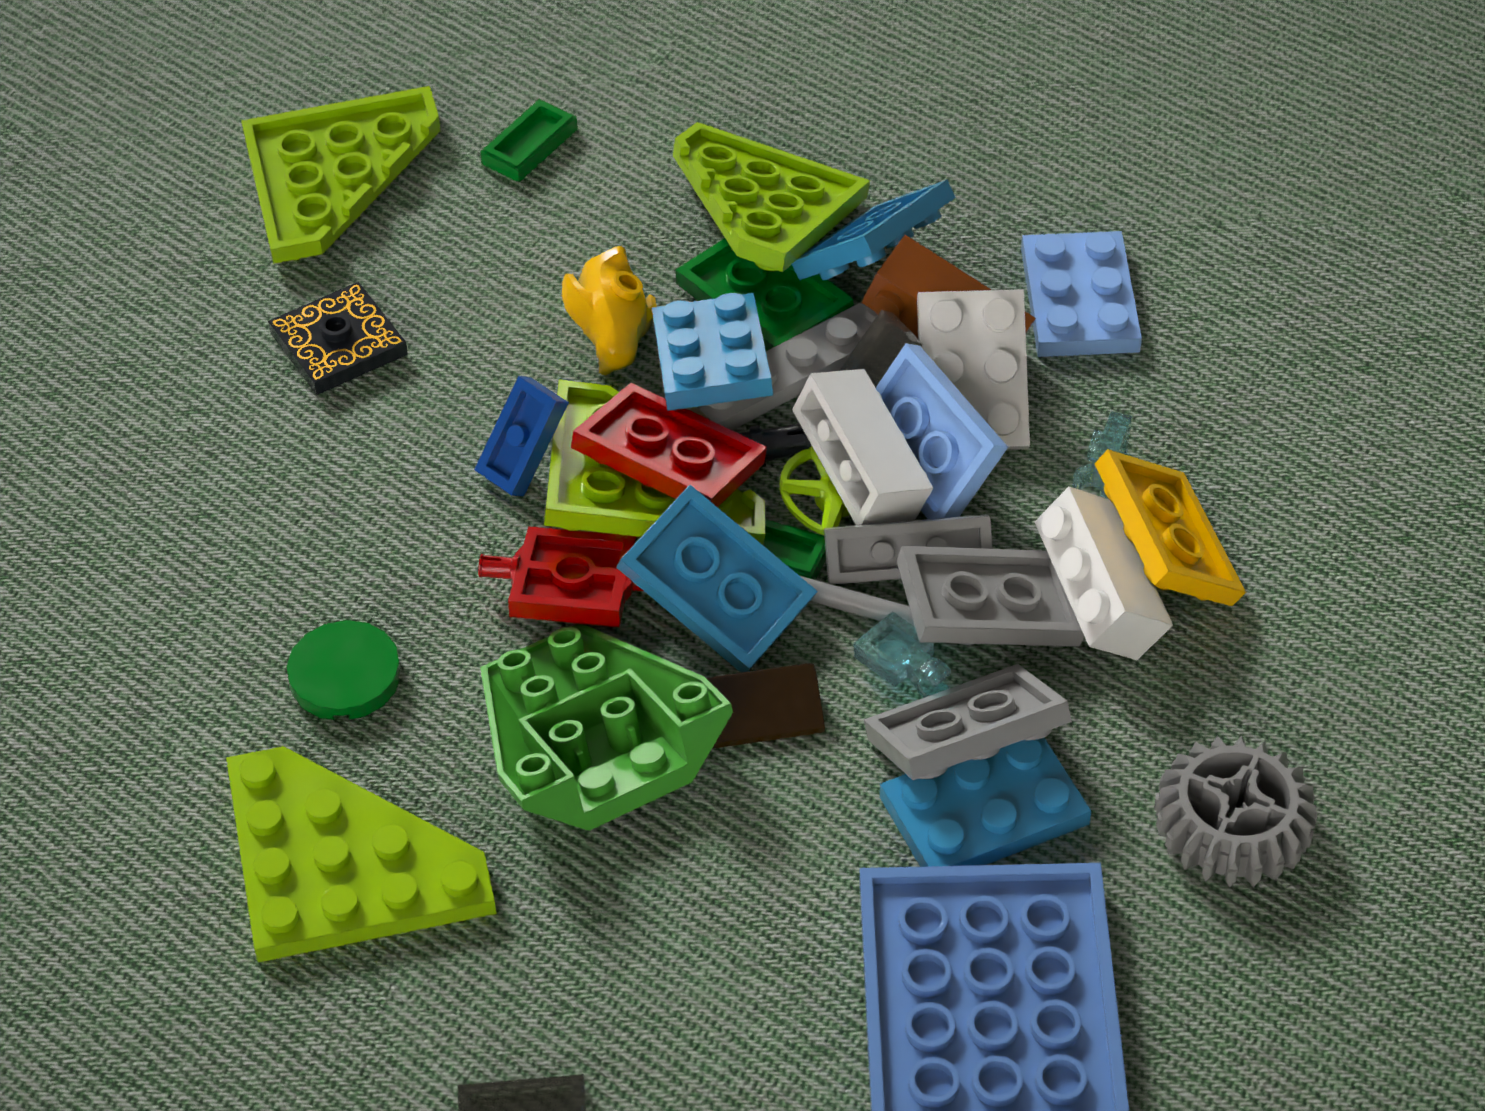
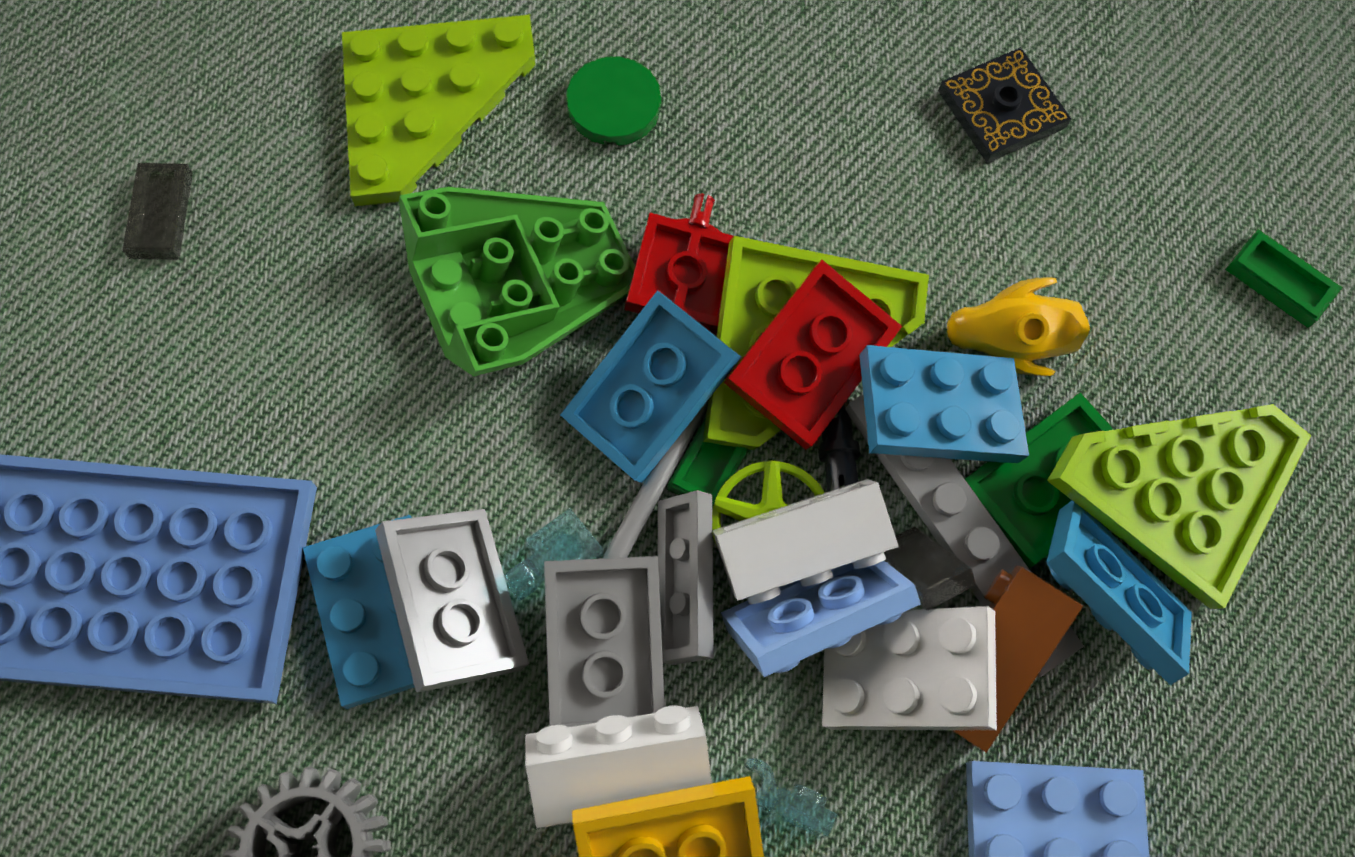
camera: 90 degrees right, 20 degrees up
(331, 162) = (1237, 98): lime plate -> none
(521, 436) = (849, 233): blue plate -> none
(770, 704) = (517, 425): dark brown slope -> none

